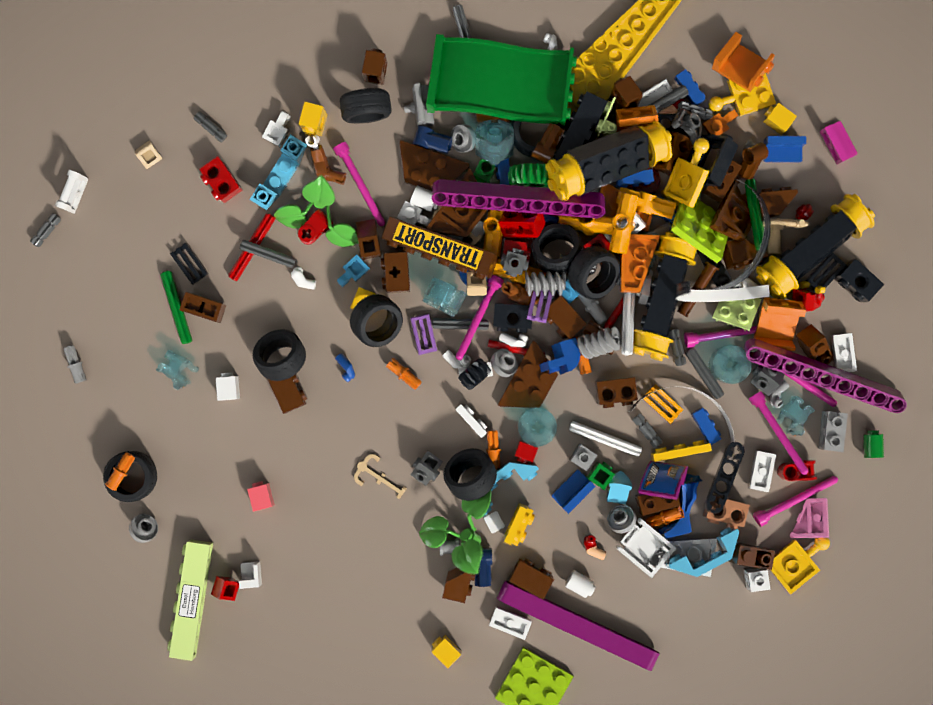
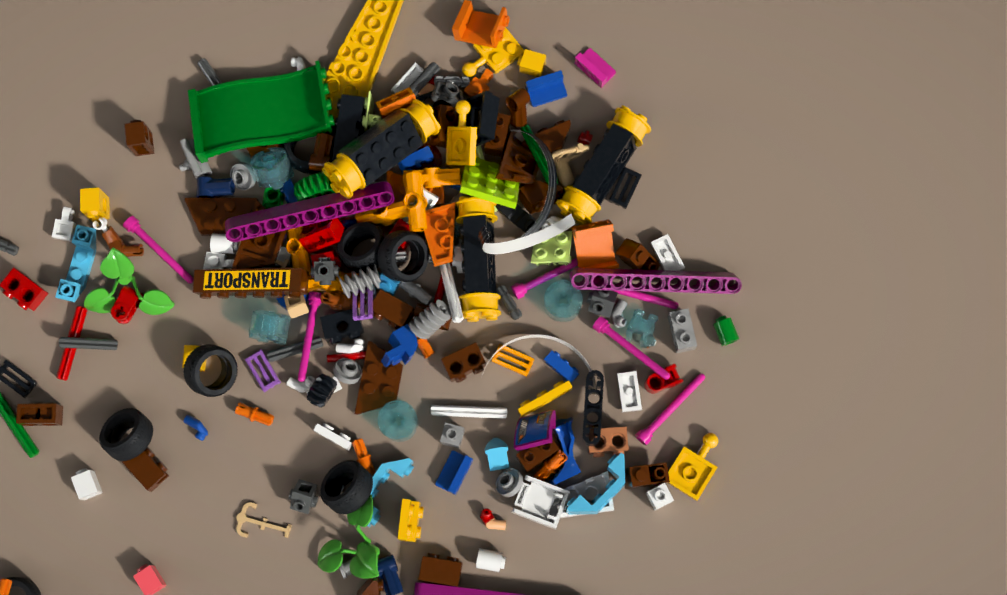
camera: 20 degrees left, 10 degrees down
(174, 369) = (29, 483): clear light blue animal -> none
(300, 280) = (124, 355): white arm -> none
(354, 269) = (176, 332): dark azure plate -> none
(365, 105) = (140, 175): black tyre -> none
(368, 239) = (181, 299): reddish brown slope -> none
(398, 261) = (225, 328): reddish brown brick -> none
(494, 522) = (388, 529): white sticker -> none
(525, 452) = (395, 449): red plate -> none
(601, 475) = (474, 446): green brick -> none
(626, 93) = (380, 85): reddish brown brick -> none
(647, 430) = (506, 390): dark grey axle -> none
(695, 95) = (446, 67): blue piece -> none
(700, 284) = (510, 234): reddish brown pin -> none
(705, 373) = (543, 318): dark grey axle -> none
(810, 298) = (617, 216): red piece -> none
(812, 520) = (693, 422): bright pink wing -> none
(870, 283) = (652, 175): black brick -> none

